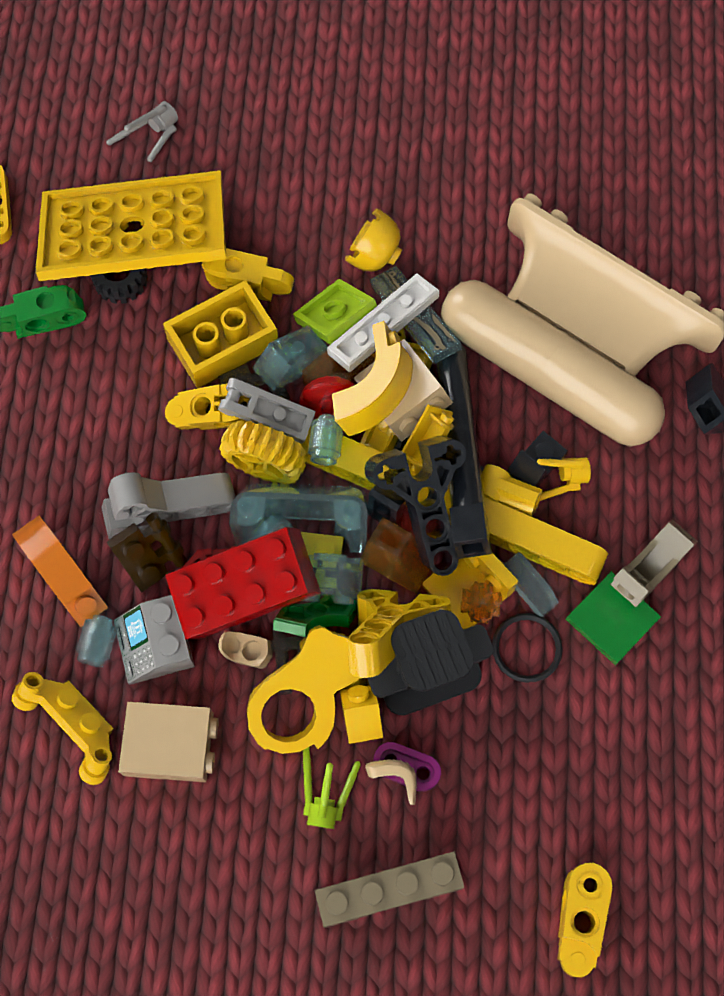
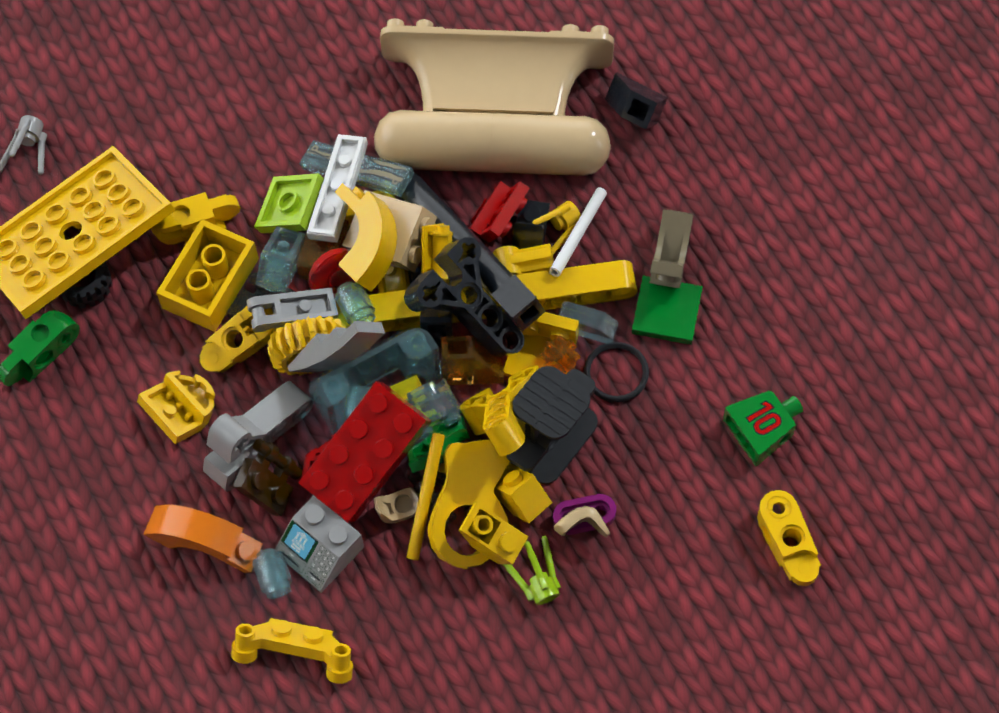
camera: 30 degrees left, 5 degrees down
(122, 436) = (179, 405): none -> yellow slope
(168, 742) = (385, 611): tan brick -> none
(271, 658) = (425, 496): none -> yellow piece
(275, 472) = (337, 348): none -> light grey slope
(303, 737) = (492, 535): none -> yellow slope
(376, 243) = (285, 131): yellow cylinder -> none
(389, 889) = (622, 617): dark tan arch -> none
(513, 428) = (494, 213): none -> red slope
(576, 493) = (577, 232): none -> white piece
(631, 787) = (762, 423): none -> green torso

